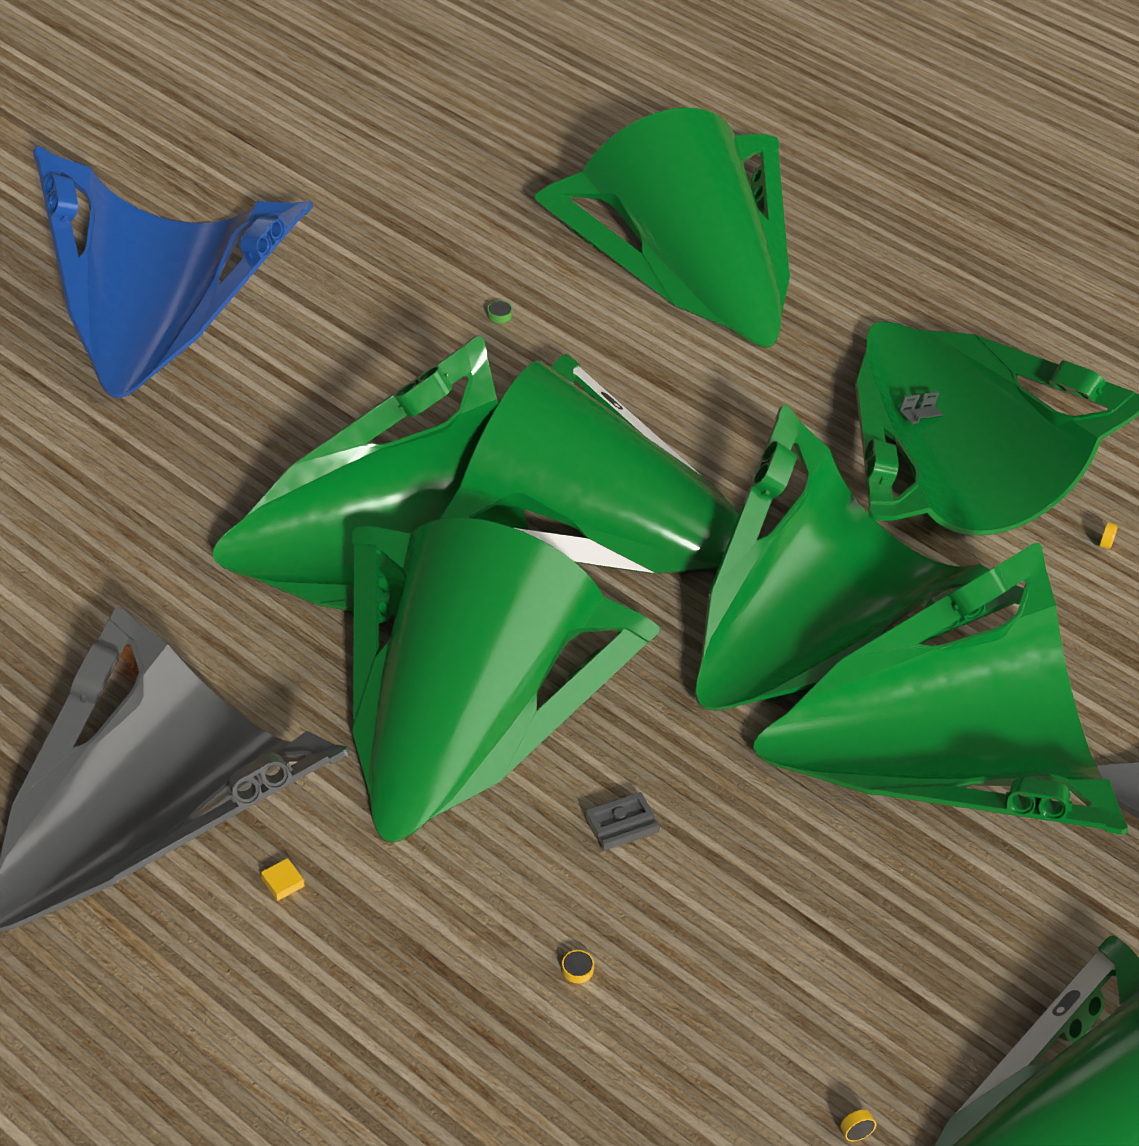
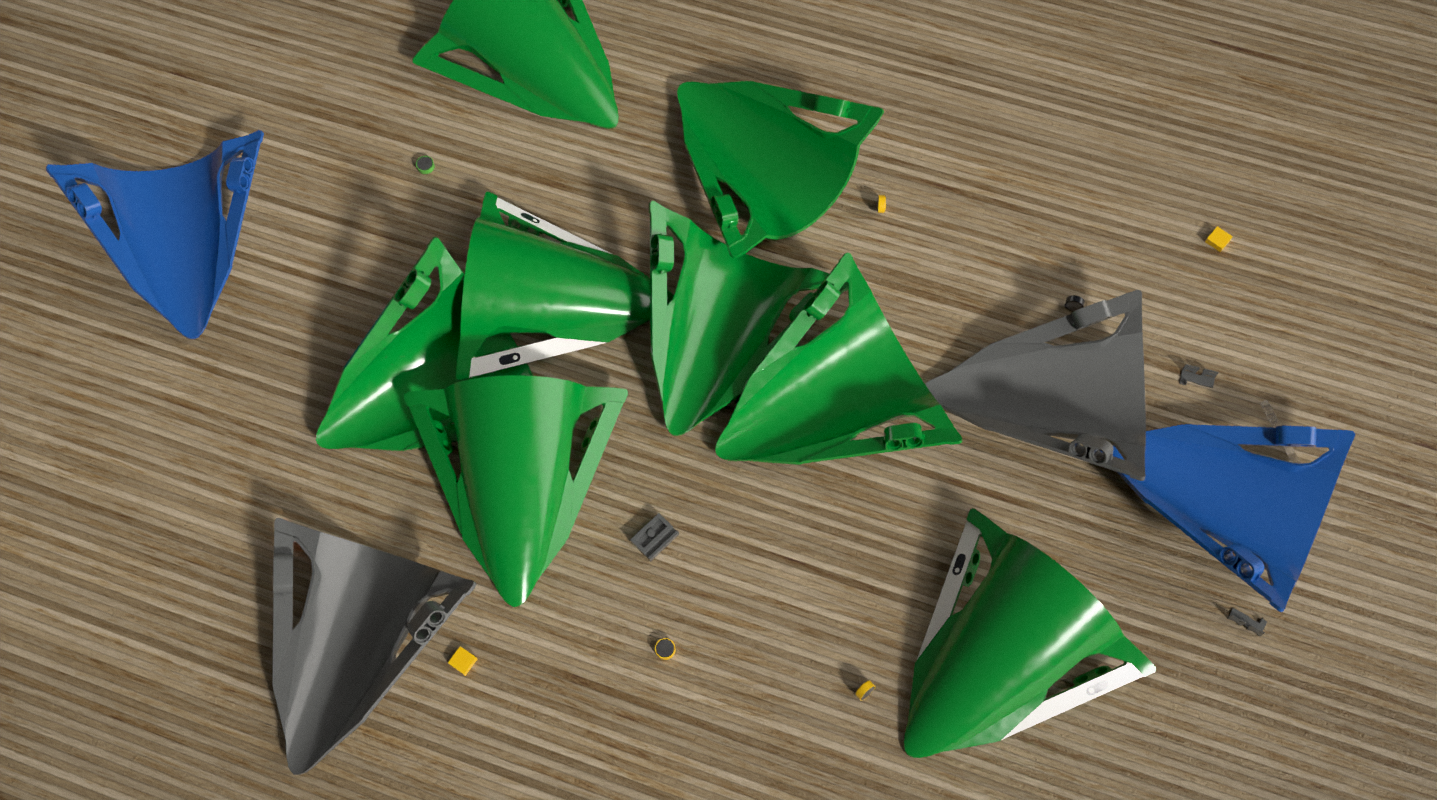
camera: 15 degrees left, 20 degrees up
(913, 415) = (735, 146): dark grey piece -> none

